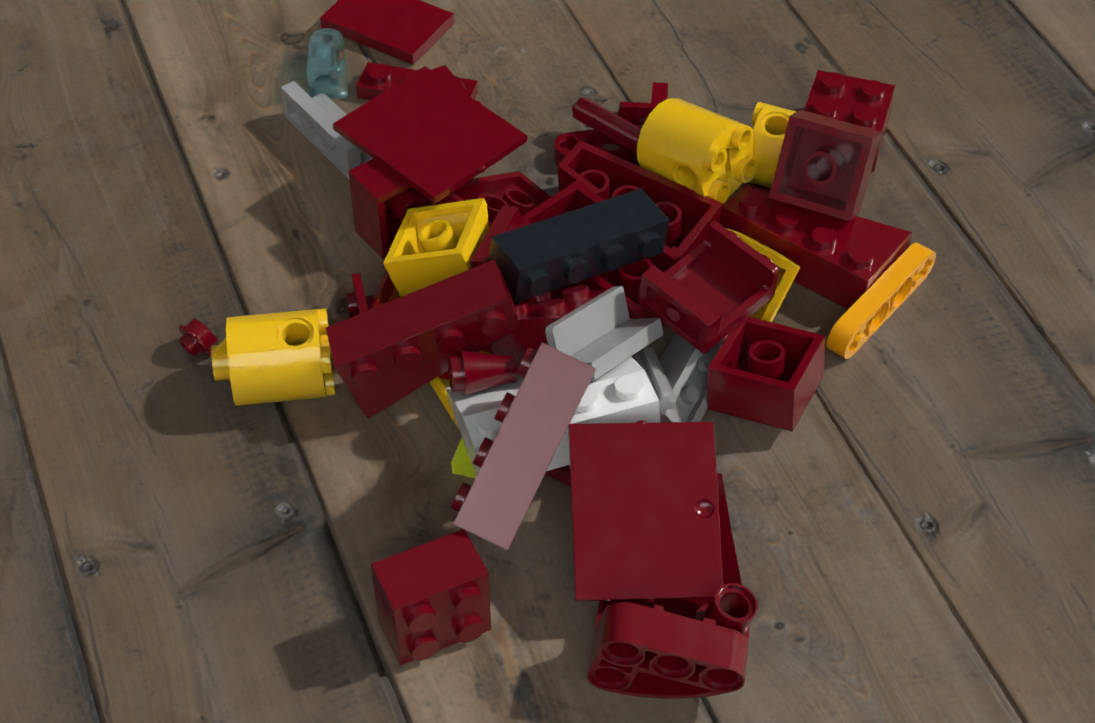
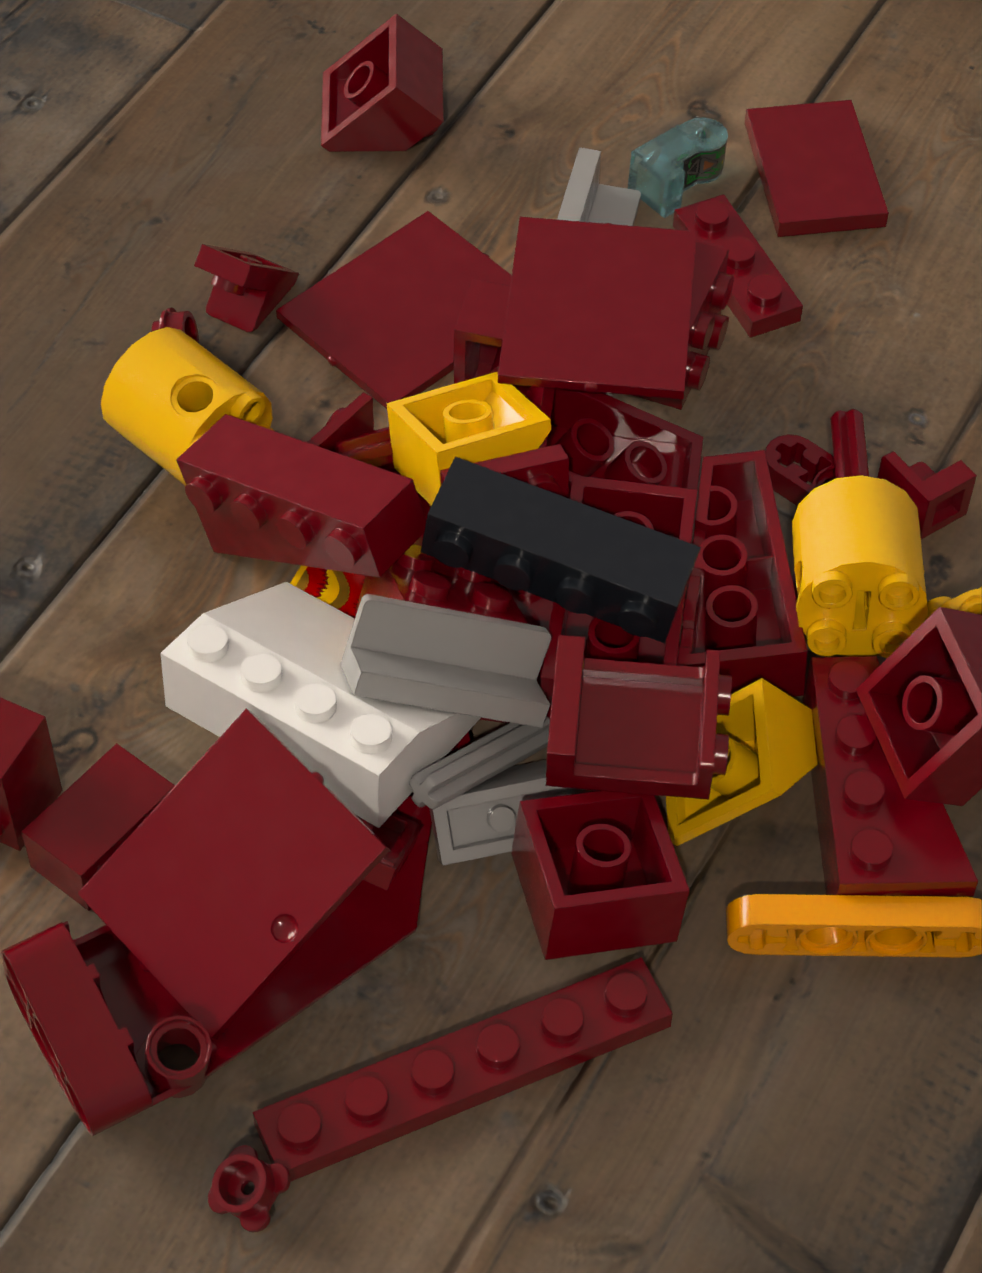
camera: 50 degrees right, 5 degrees up
(125, 144) = (383, 92): none -> dark red slope
(198, 289) = (244, 285): none -> dark red slope
(291, 234) = (393, 309): none -> dark red piece
(479, 371) = (294, 586): dark red cone -> none
(523, 446) = (187, 680): wedge -> none
(528, 576) = (93, 820): none -> dark red brick
(822, 515) = (462, 1069): none -> dark red plate
(829, 630) = (229, 1184): none -> dark red plate

